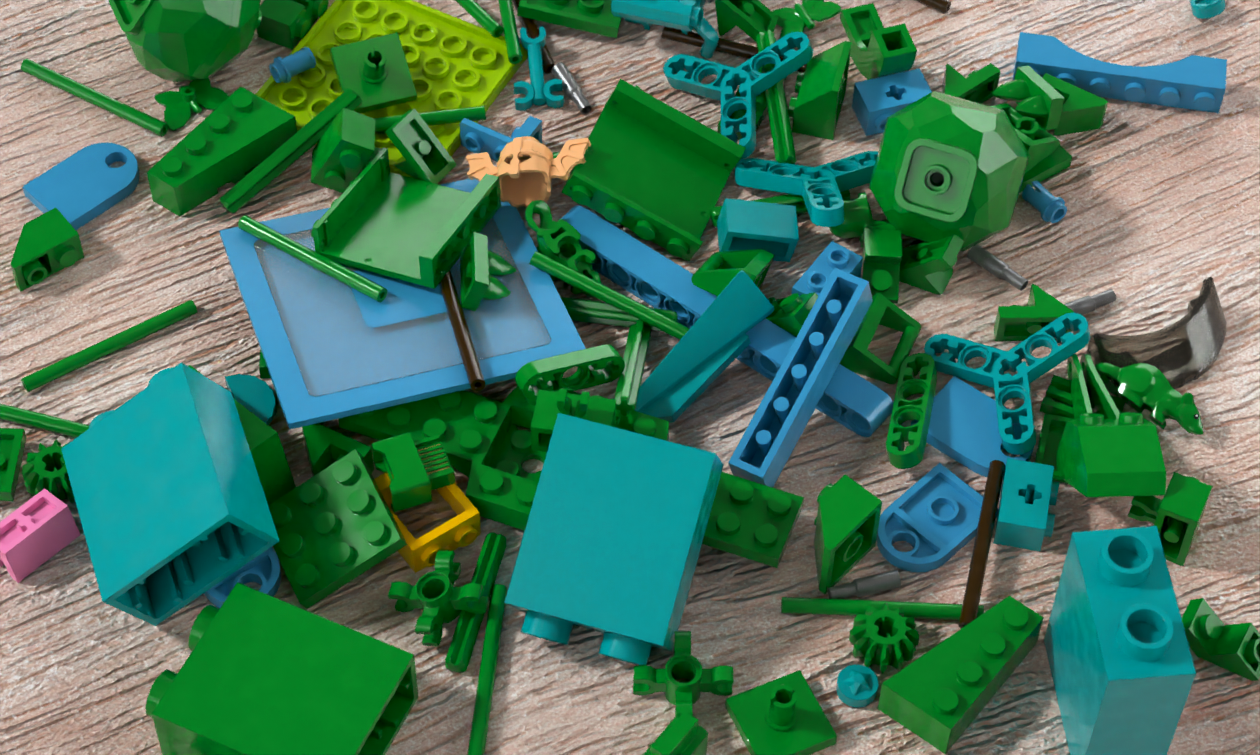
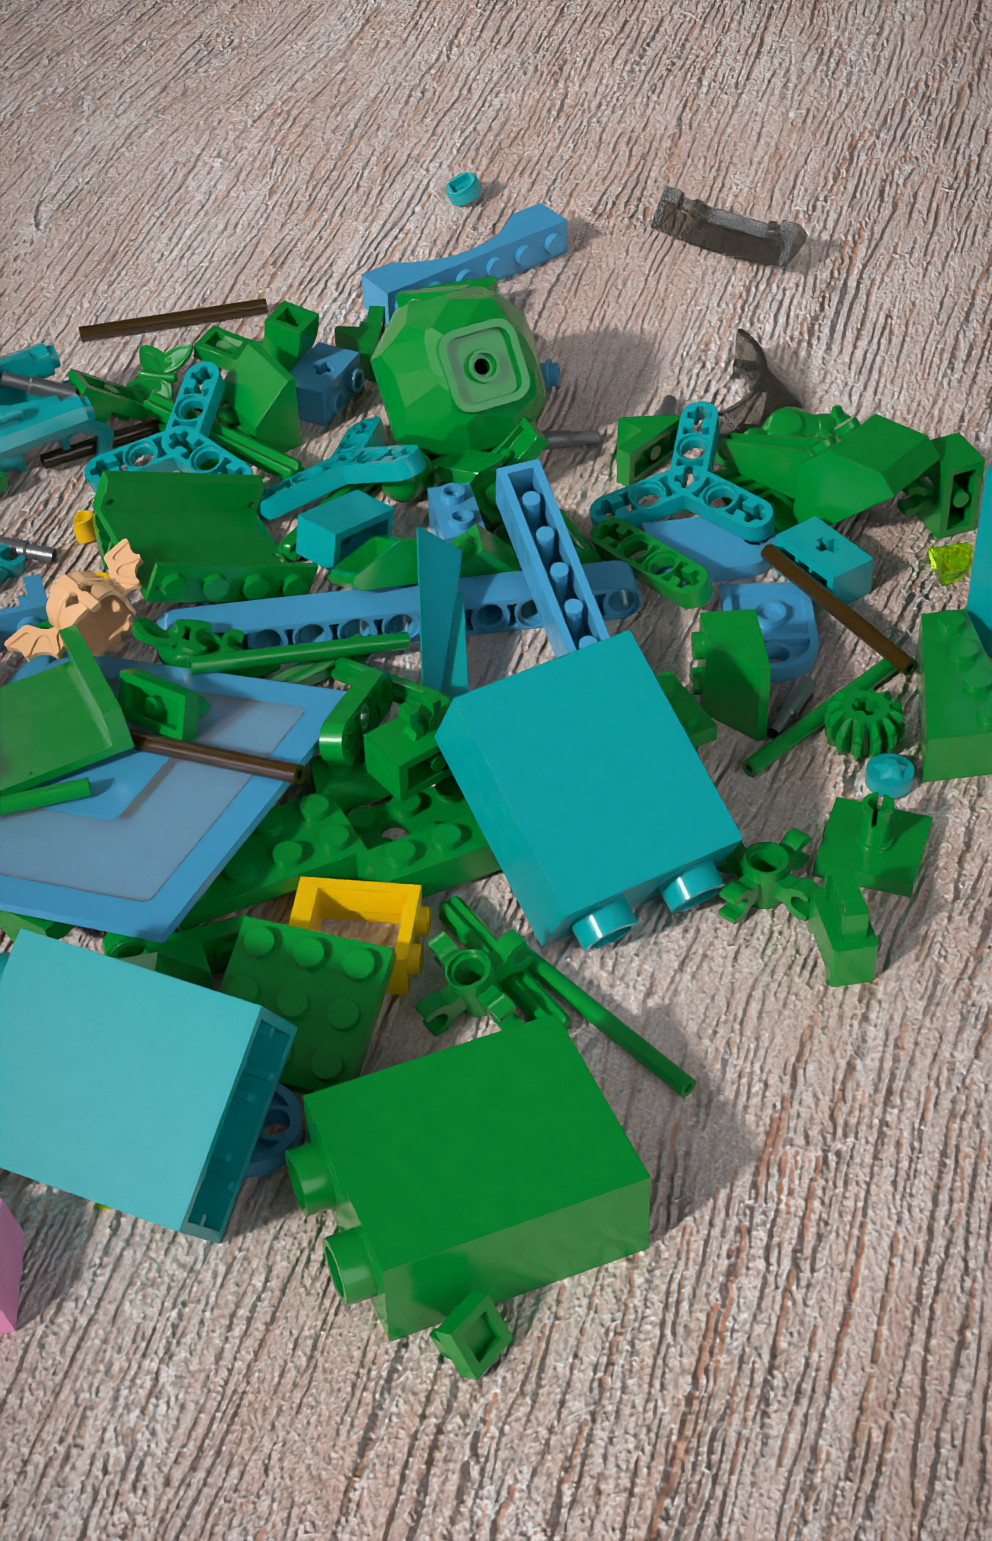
camera: 45 degrees left, 10 degrees down
(413, 468) = (319, 891): green piece -> none

